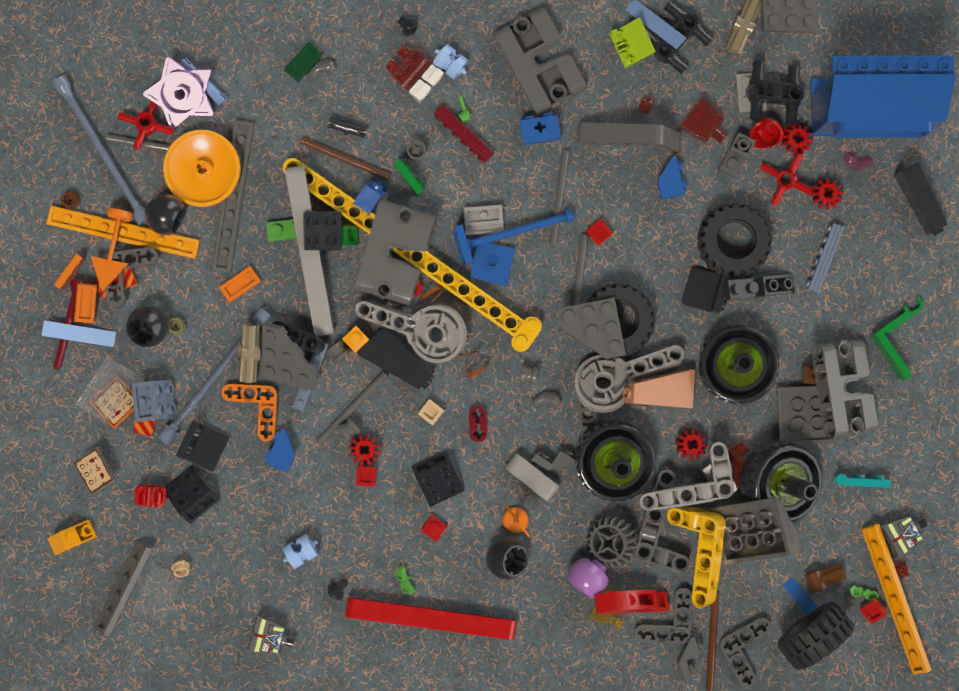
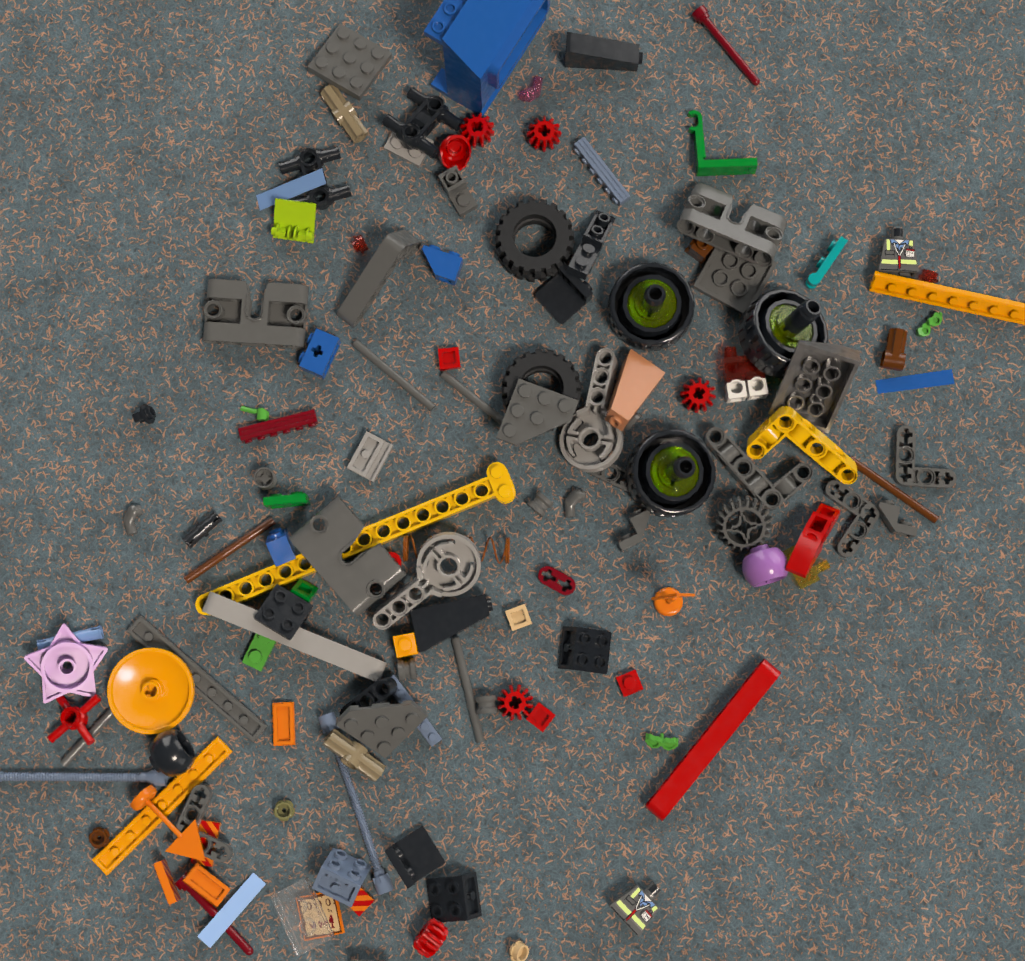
camera: 50 degrees left, 5 degrees down
(147, 326) = (266, 838): black wheel -> none
(263, 404) = (410, 771): orange beam -> none
(282, 452) = (469, 783): blue slope -> none
(301, 550) = (573, 824): light blue wheel -> none
(303, 62) = (115, 532): dark green tile -> none
(335, 590) = (632, 813): black plate -> none
(410, 69) = (193, 436): clear red hips -> none
(450, 61) = (201, 396): light blue wheel -> none
(465, 245) = (382, 488): blue tile -> none
(492, 263) = (415, 474): blue plate -> none
(506, 558) = (700, 631): black wheel -> none
(532, 477) = (637, 560): light grey beam -> none
(699, 492) = (749, 412): light grey beam -> none
(704, 123) = (409, 202): clear red torso -> none
(794, 179) = (500, 165): red bar -> none
(815, 635) = (947, 388): black tyre -> none
(873, 610) = (951, 325): red plate -> none

